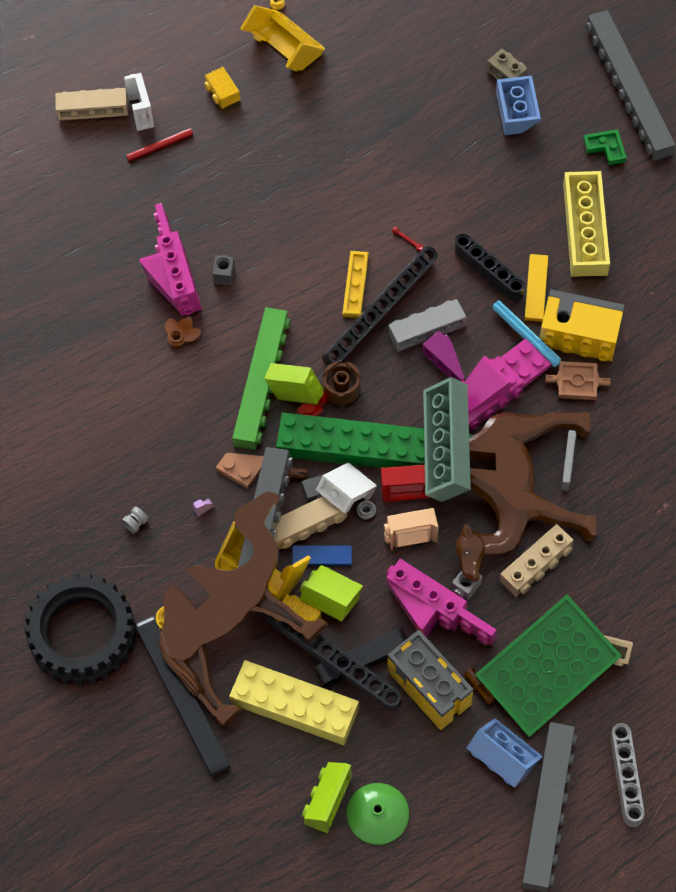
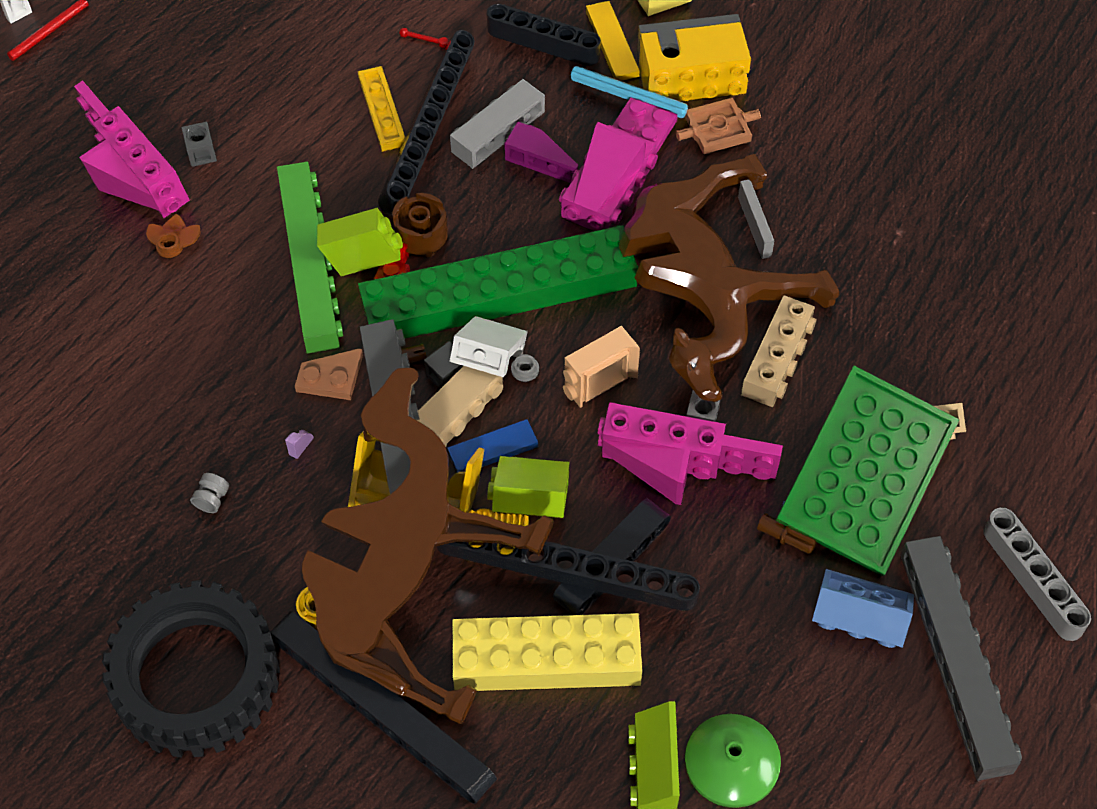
camera: 25 degrees left, 5 degrees down
(403, 483) = (564, 314): red window -> none
(429, 679) = (722, 546): dark grey piece -> none
(446, 440) = (600, 235): sand green brick -> none

